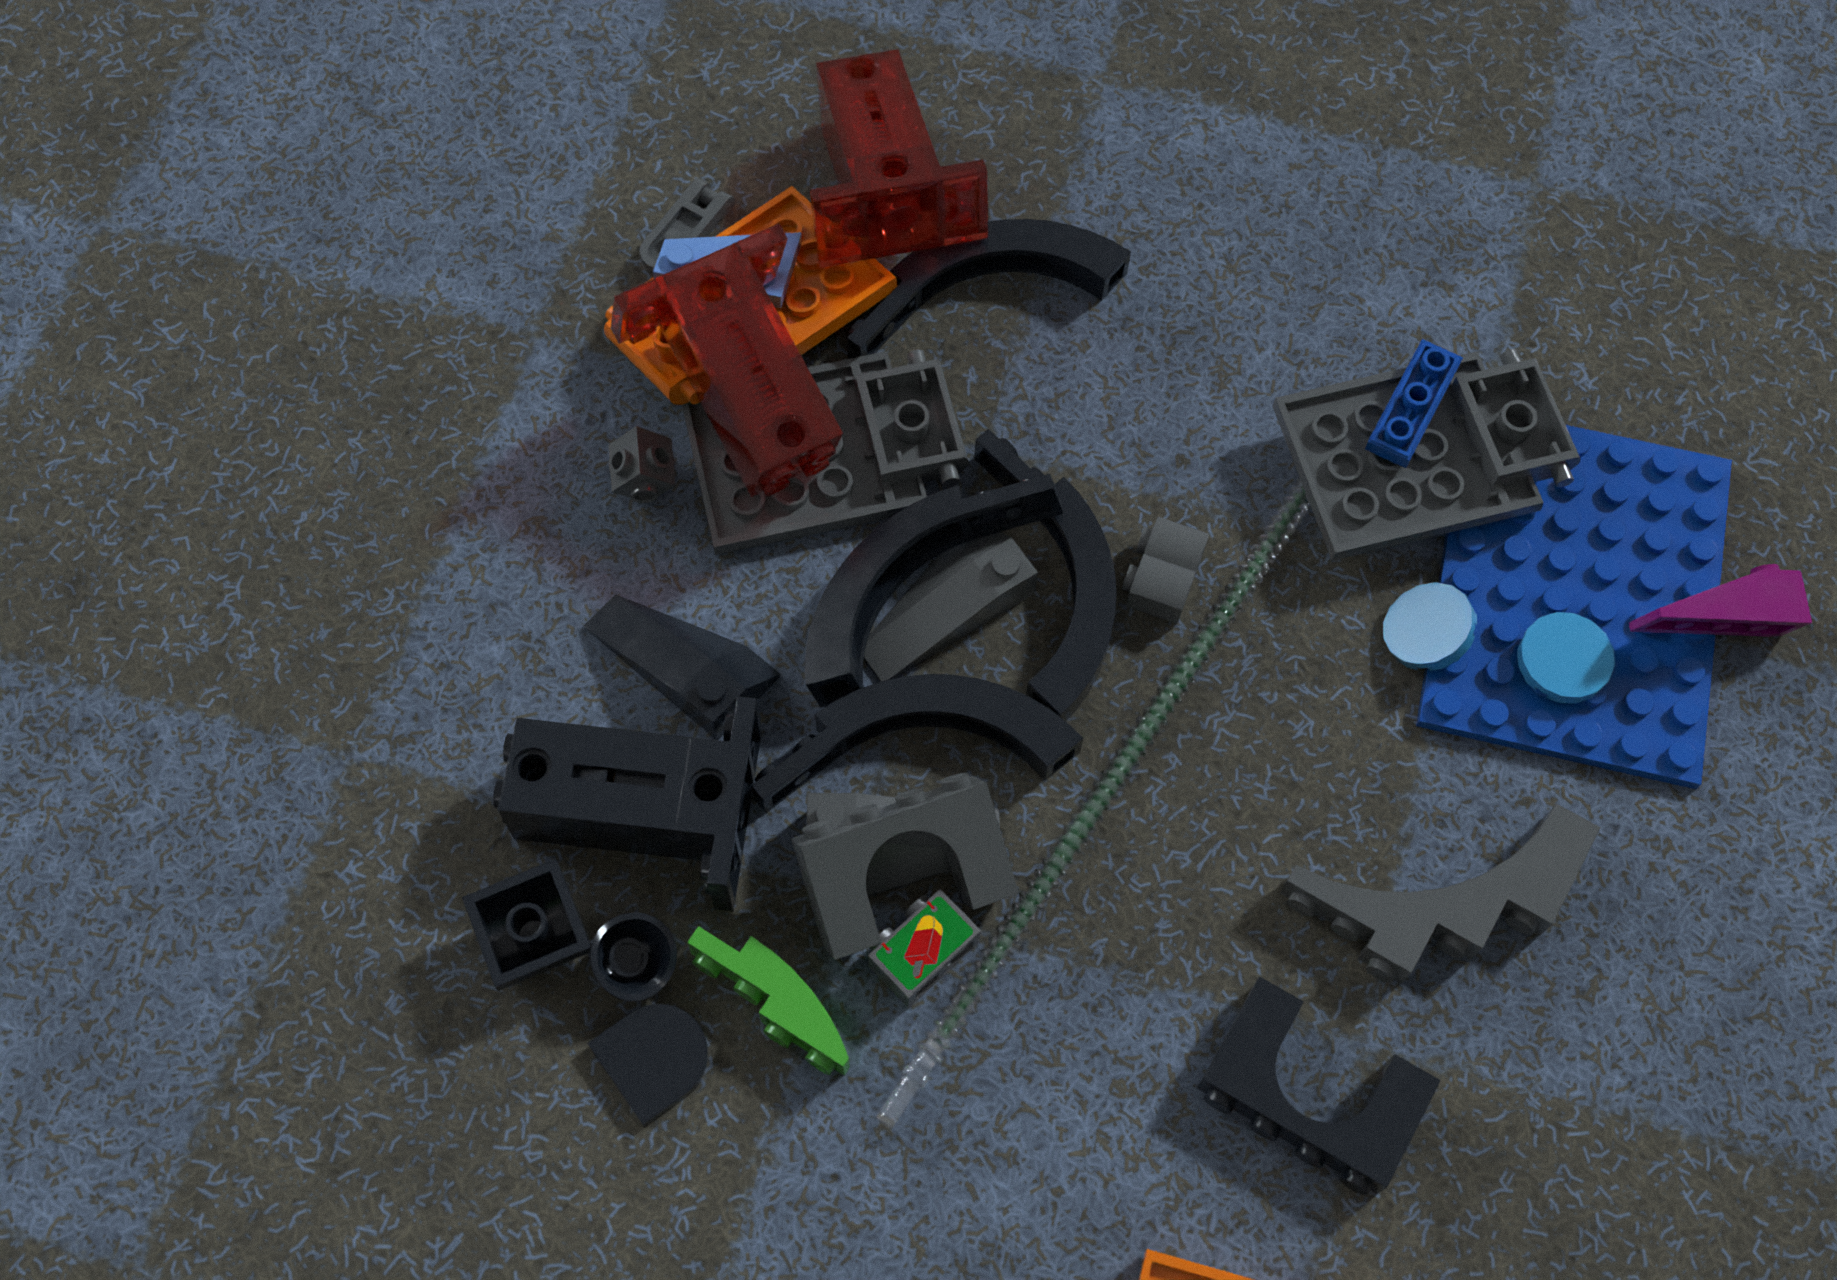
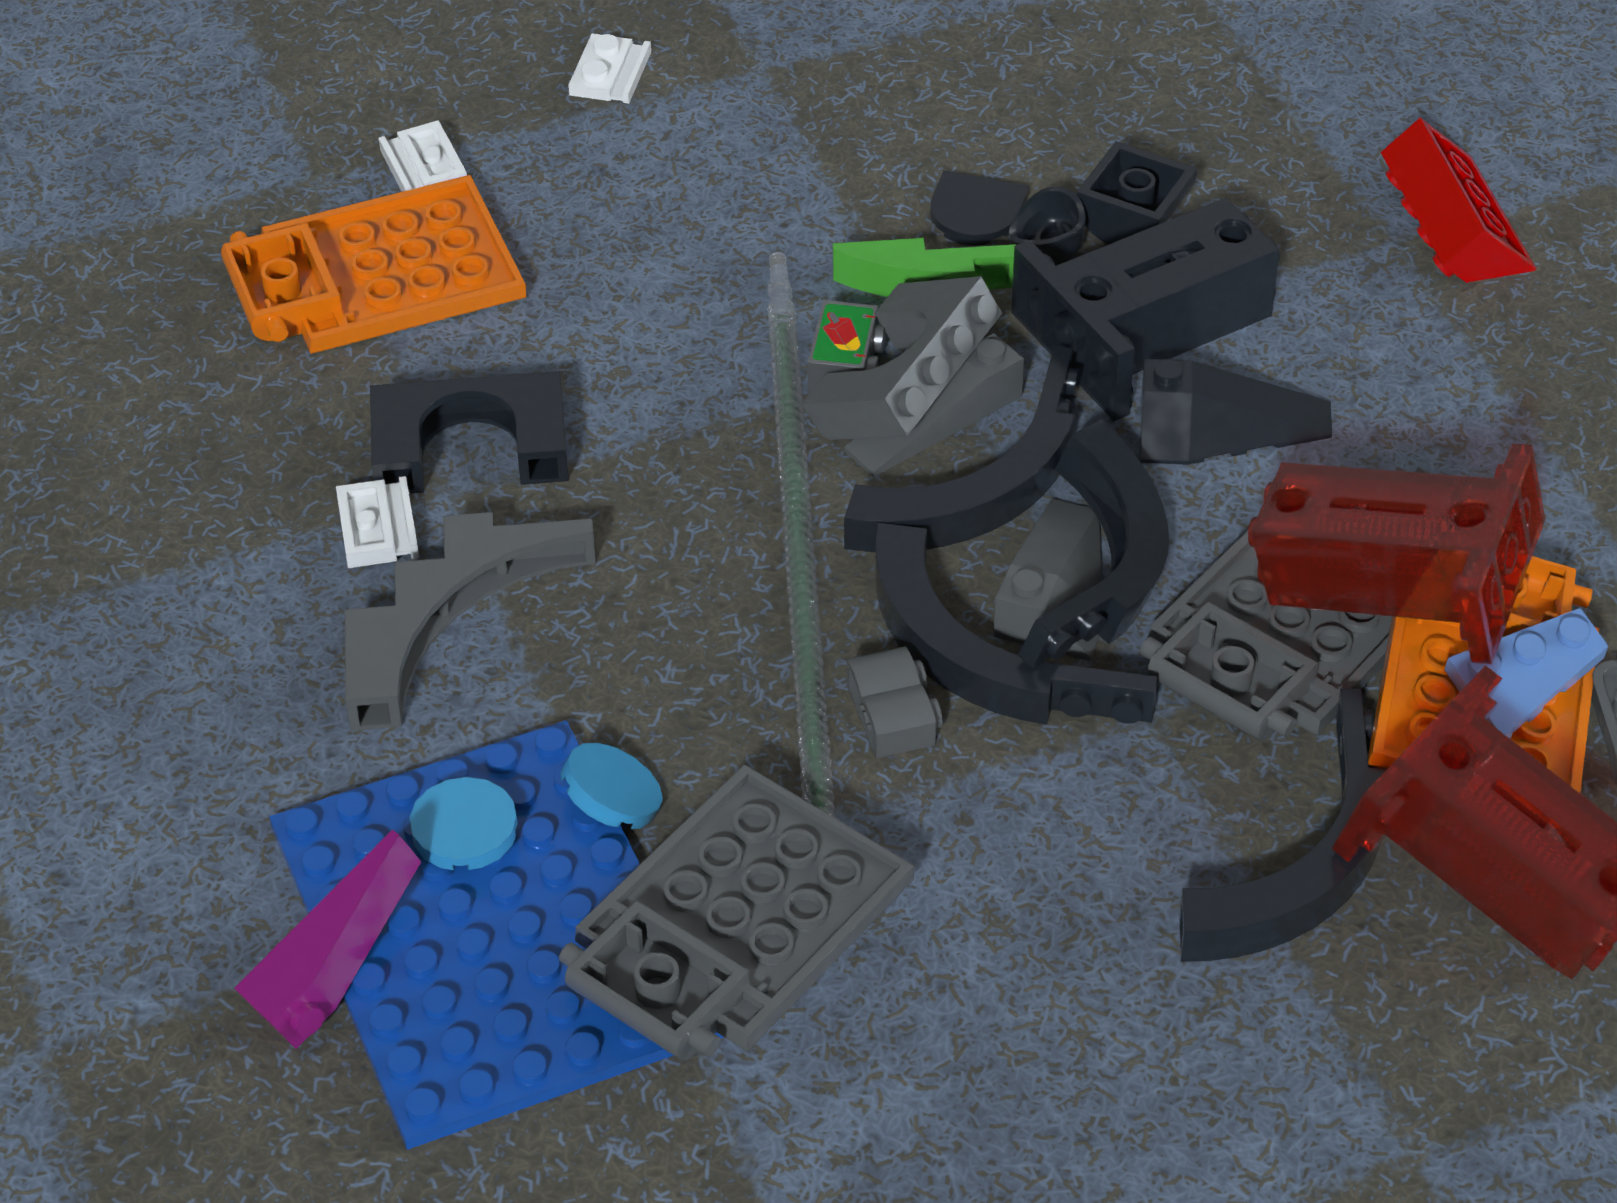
camera: 145 degrees right, 20 degrees down
(276, 736) = (1453, 206): none -> red slope
(1406, 419) = (773, 931): blue tile -> none
(1456, 1038) = (376, 522): none -> white plate

